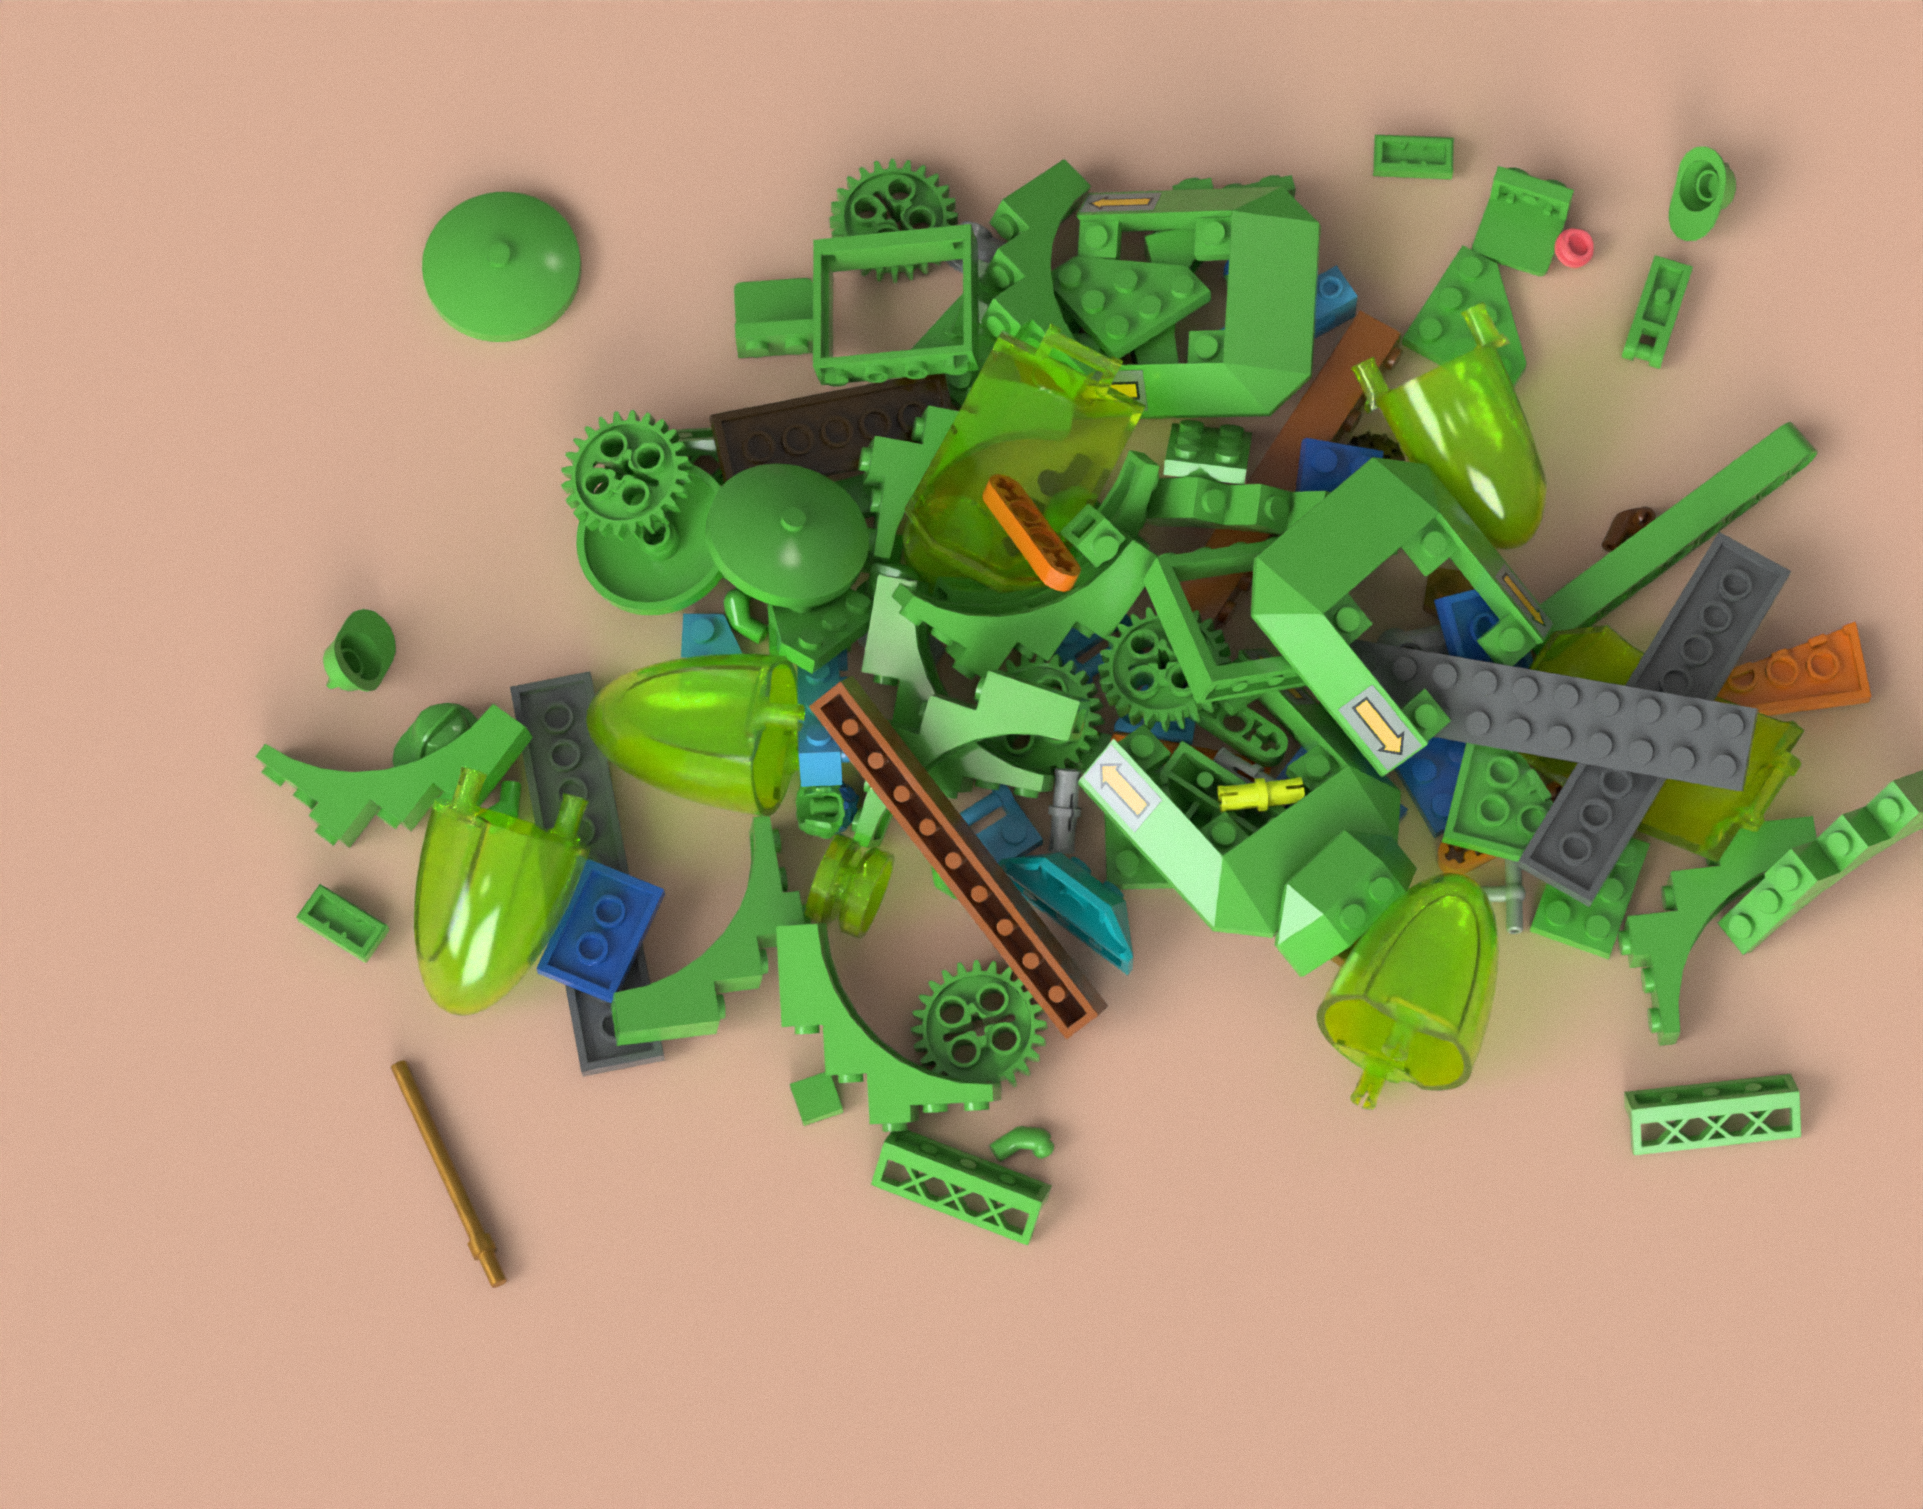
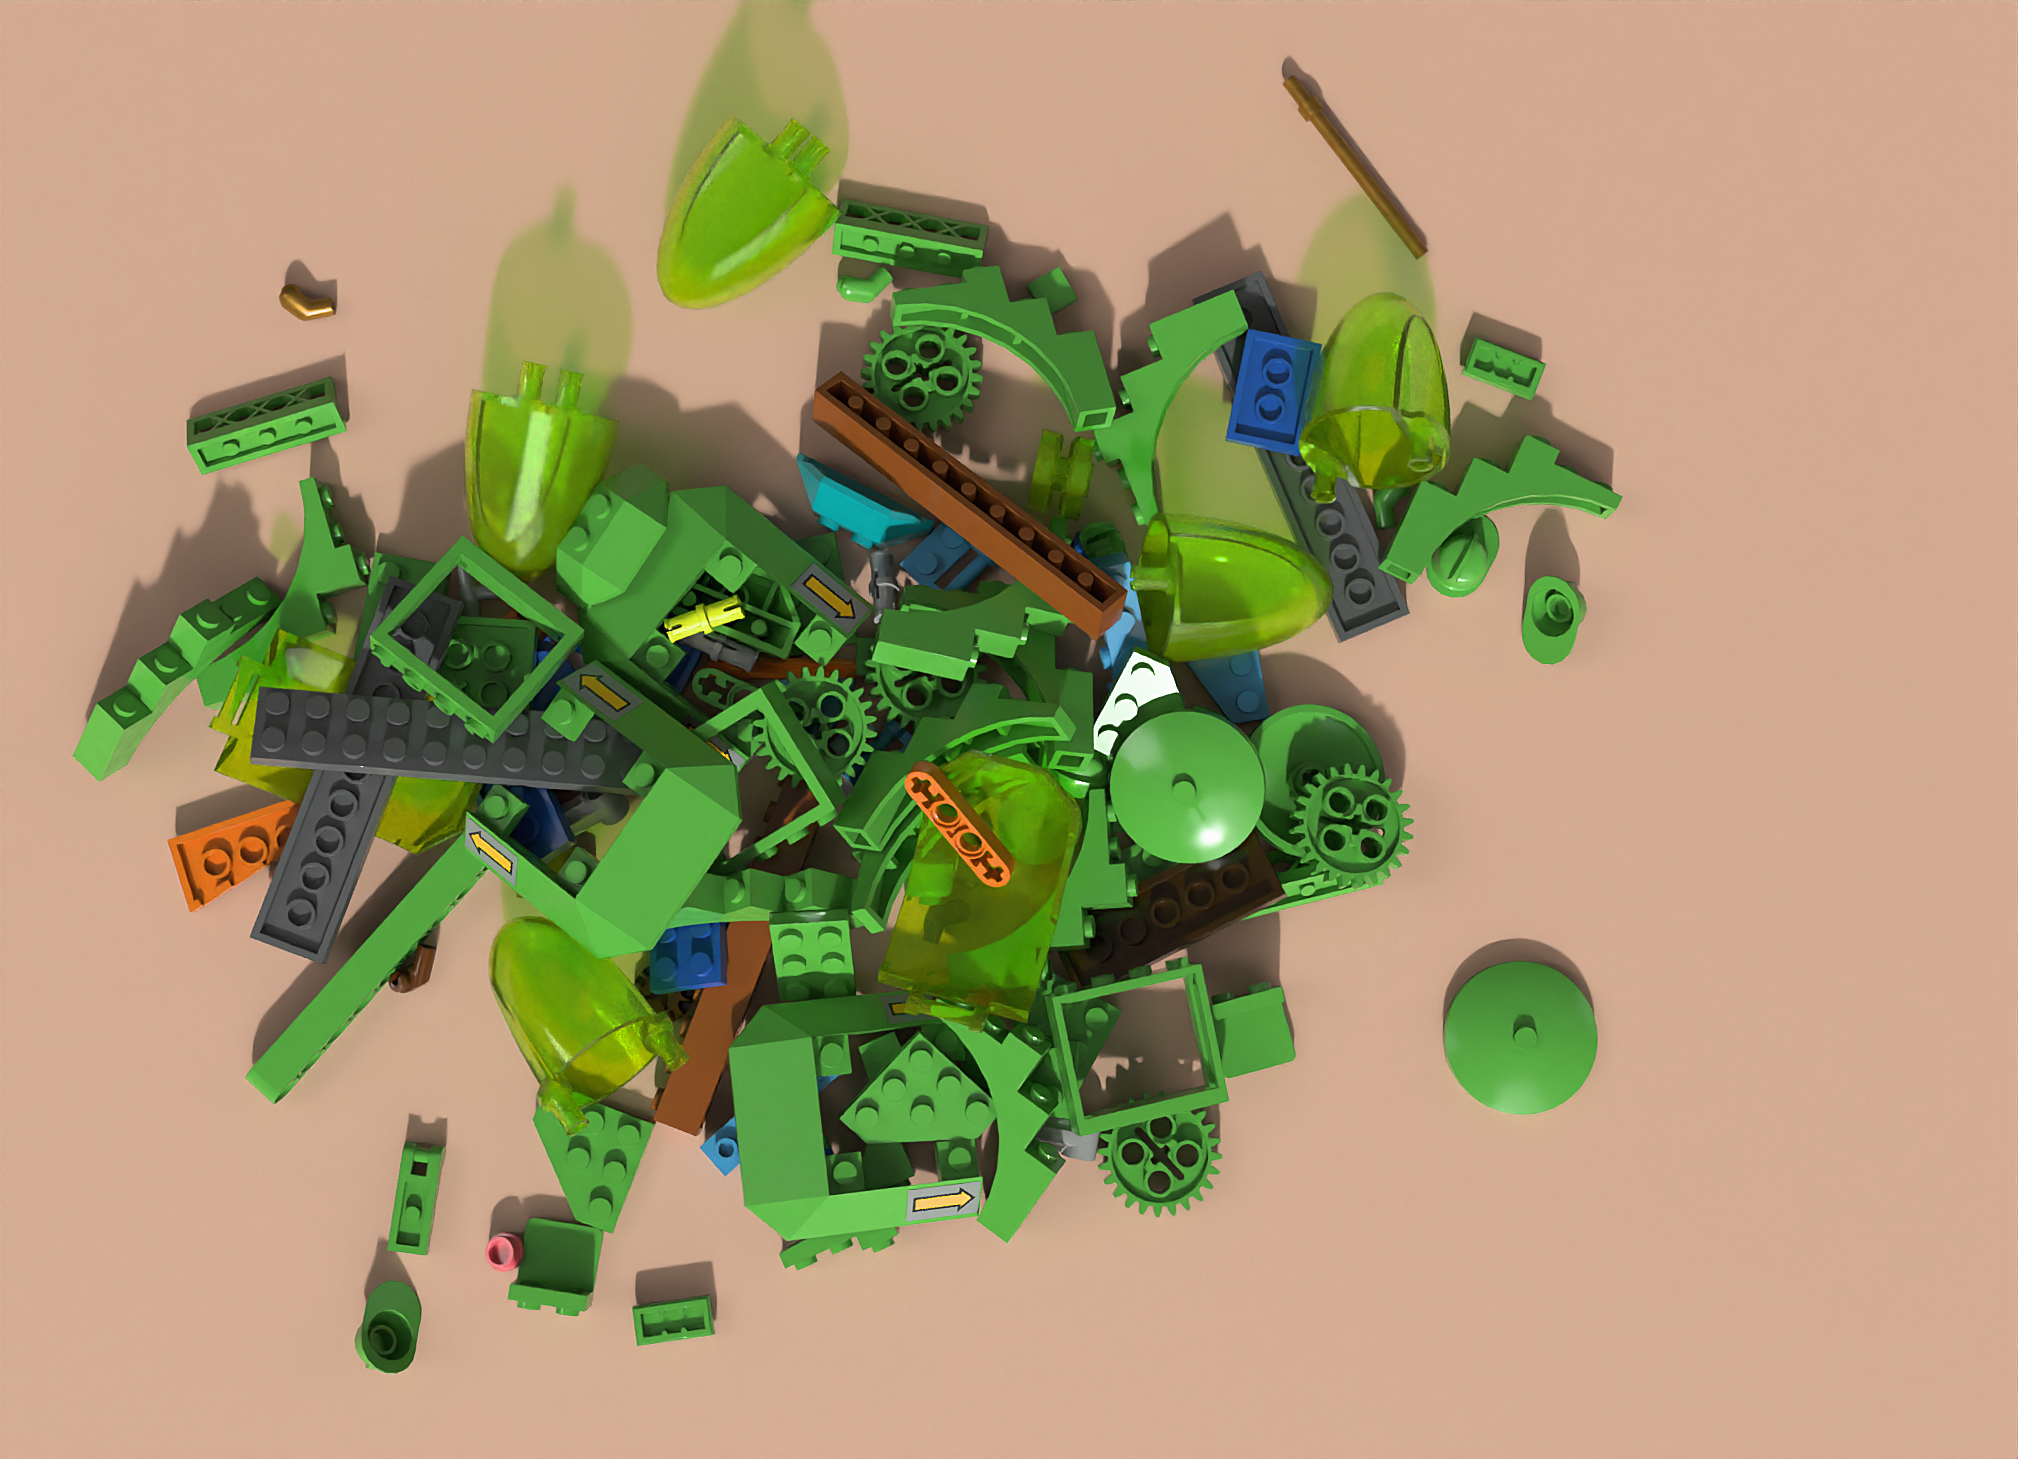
camera: 160 degrees right, 15 degrees up
(1099, 541) = (891, 823): bright green brick -> none
(1138, 1219) = (741, 215): none -> clear neon green windscreen
(1570, 851) = (513, 592): none -> bright green window
(1654, 1234) = (302, 307): none -> pearl gold arm

